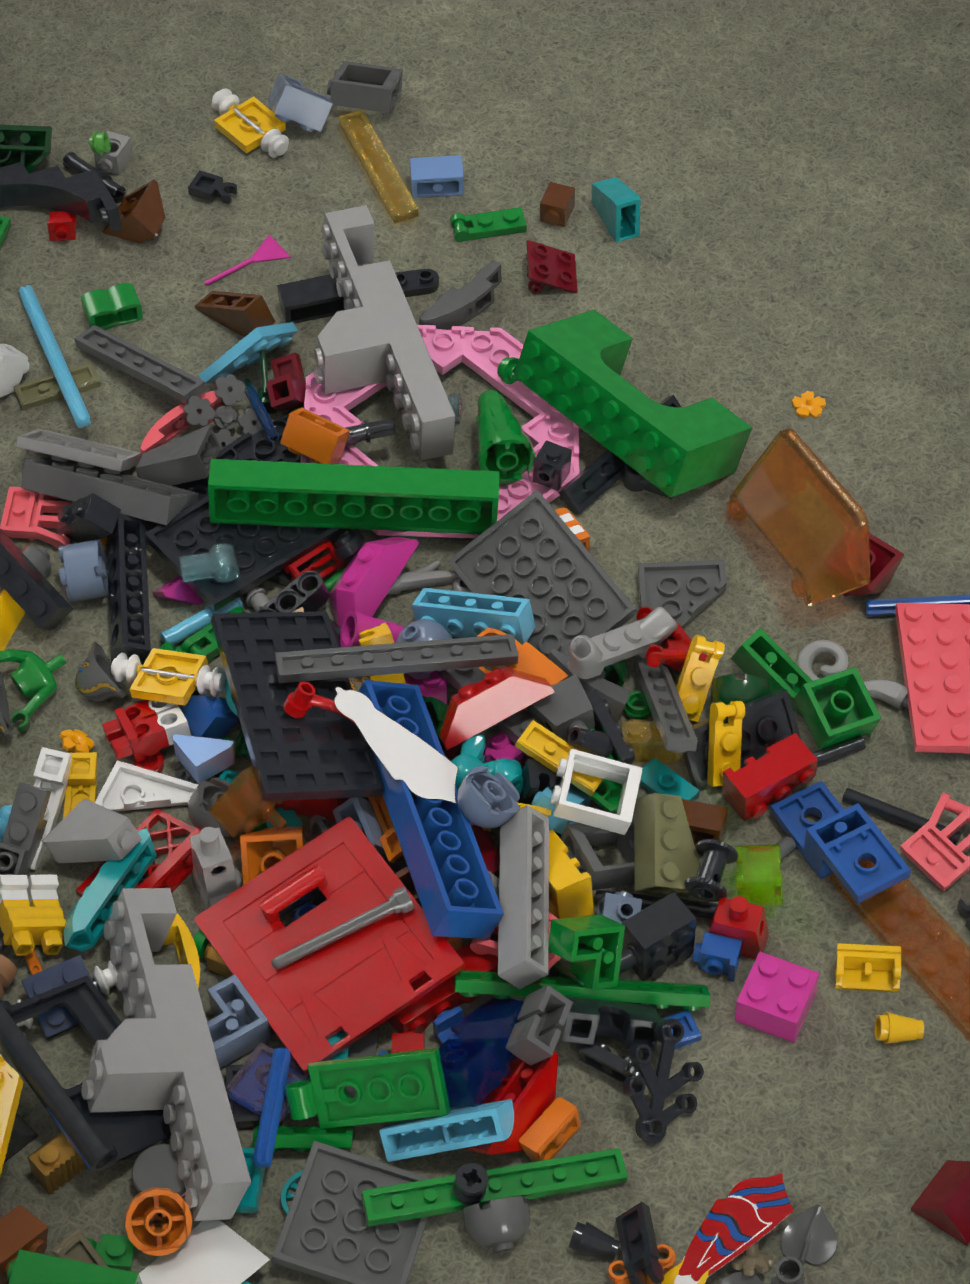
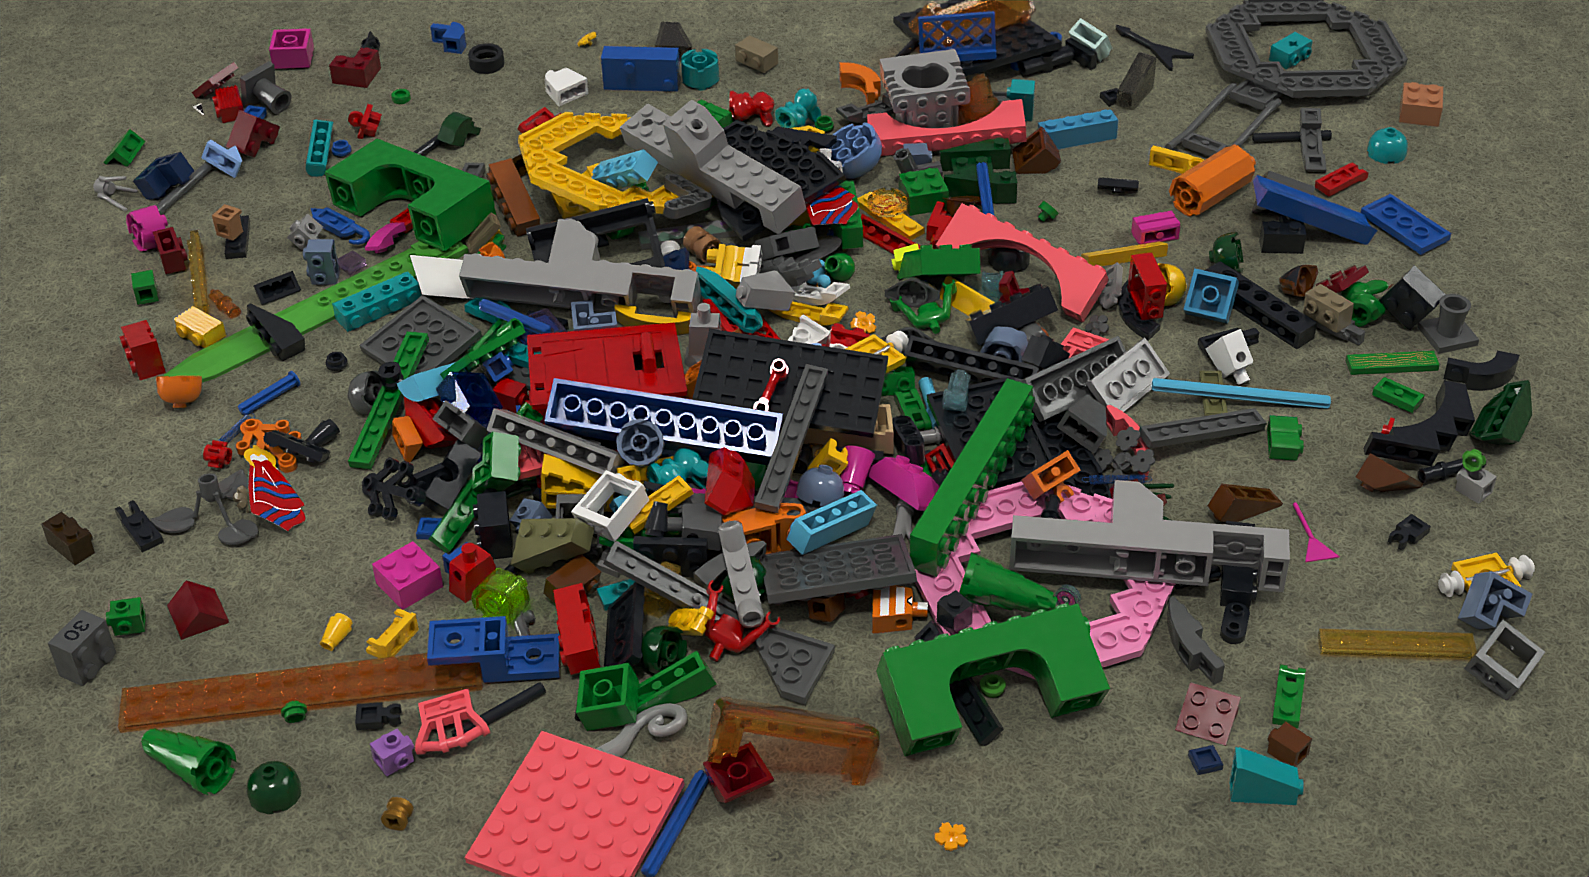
camera: 115 degrees right, 10 degrees down
(248, 350) = (1185, 493): medium azure plate -> none
(398, 902) = (602, 361): dark grey piece -> none
(400, 751) = (707, 410): white sticker -> none
(437, 176) = (1363, 675): medium blue brick -> none
(604, 260) = (1205, 760): none -> dark blue tile
(714, 859) = (520, 558): black hose -> none
(724, 740) = (618, 612): yellow plate -> none

